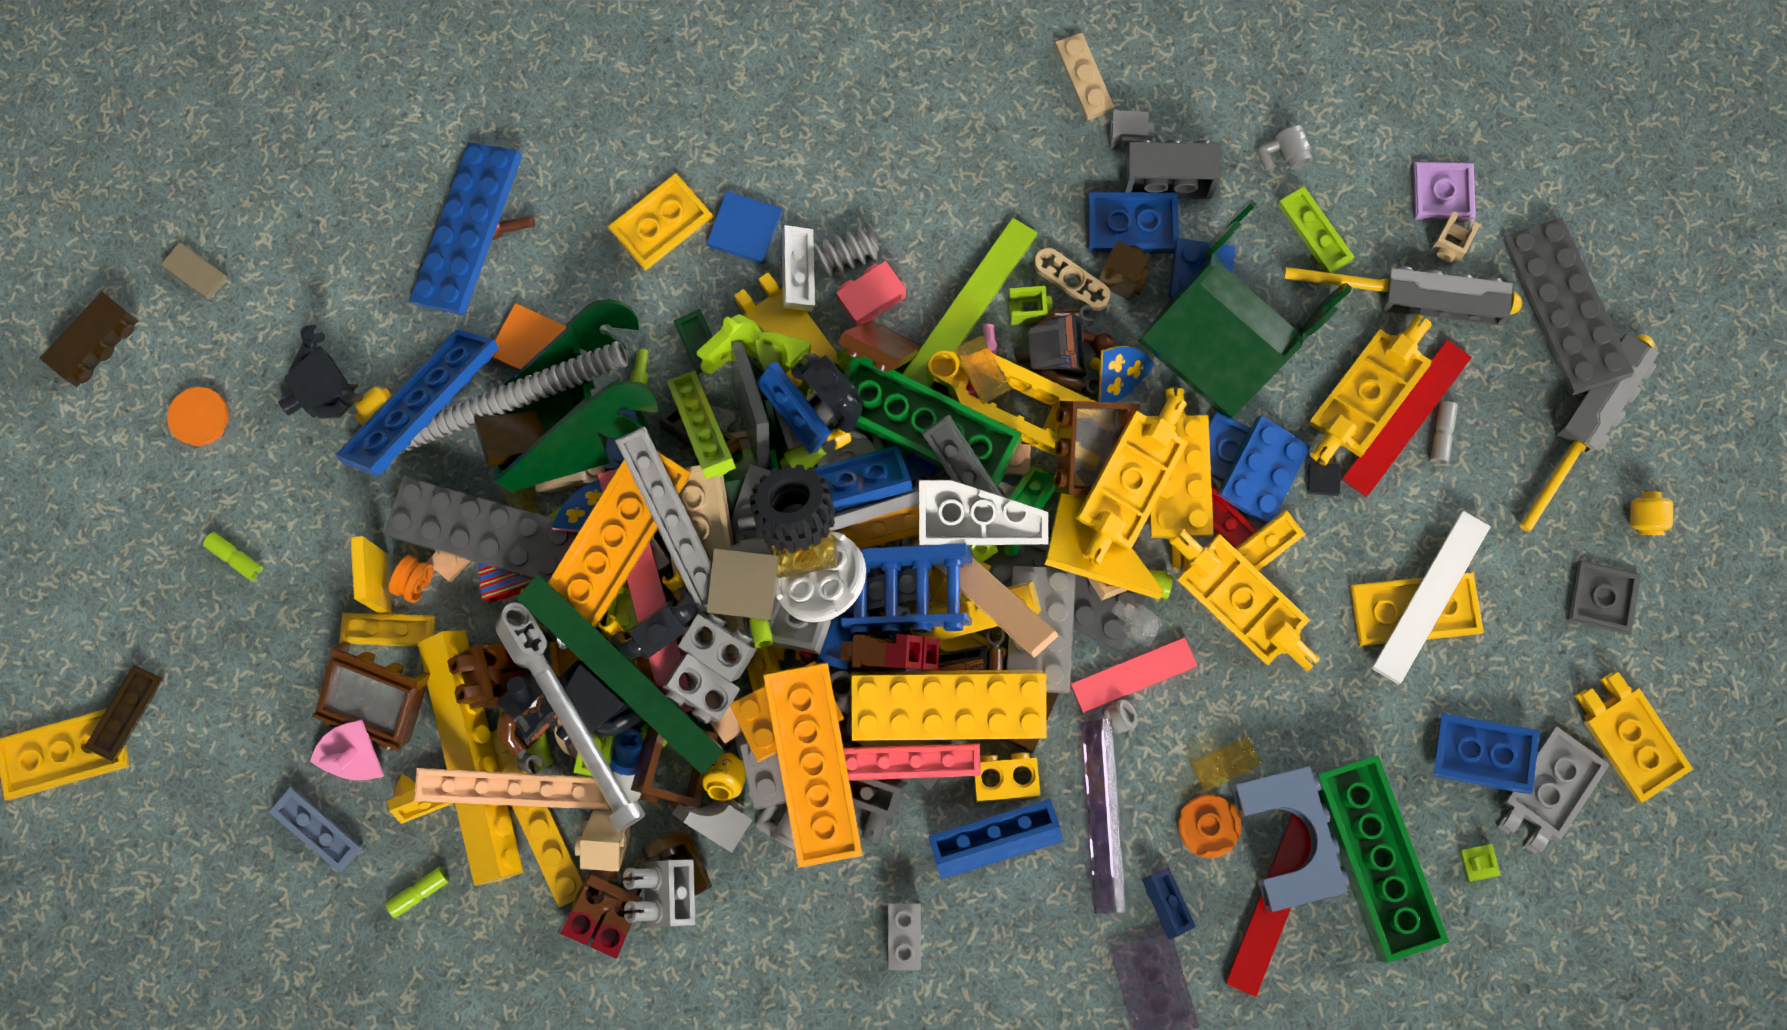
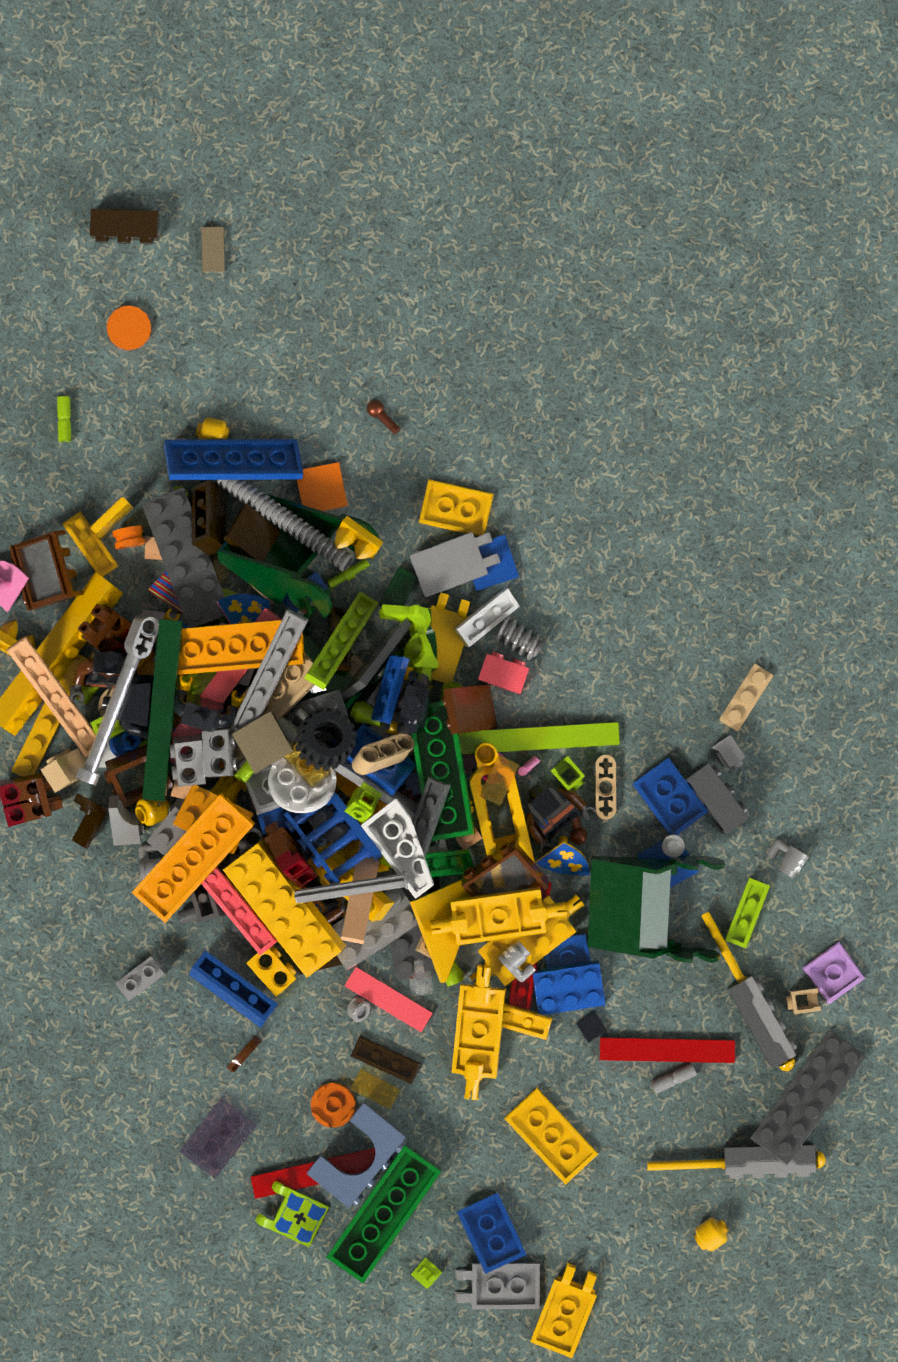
camera: 45 degrees right, 10 degrees up
(317, 381) = (201, 385): black torso -> none
(457, 473) = (208, 517): none -> dark brown brick
(466, 228) = (362, 394): blue plate -> none
(605, 324) = (353, 534): none -> yellow tile
(667, 893) = (64, 827): light grey brick -> none
(714, 261) = (452, 563): none -> light grey tile
(858, 465) = (382, 754): none -> tan beam
(899, 531) = (359, 808): none -> lime window
(983, 605) = (351, 888): none -> light grey axle
(1078, 884) = (242, 1056): none -> reddish brown tile
(1103, 816) = (292, 1040): clear purple plate -> none
(1125, 270) = (631, 817): dark brown brick -> none
(1168, 903) = (270, 1112): dark blue plate -> none
(1190, 246) = (673, 845): none -> white plate
(1191, 499) = (514, 957): none -> light grey piece
(1199, 728) = (385, 1059): none -> dark brown tile
(1311, 964) = (296, 1217): none -> lime flag
(1371, 391) = (665, 1017): yellow plate -> none
(1430, 597) = (562, 1139): white tile -> none
(1604, 597) = (640, 1240): dark grey tile -> none

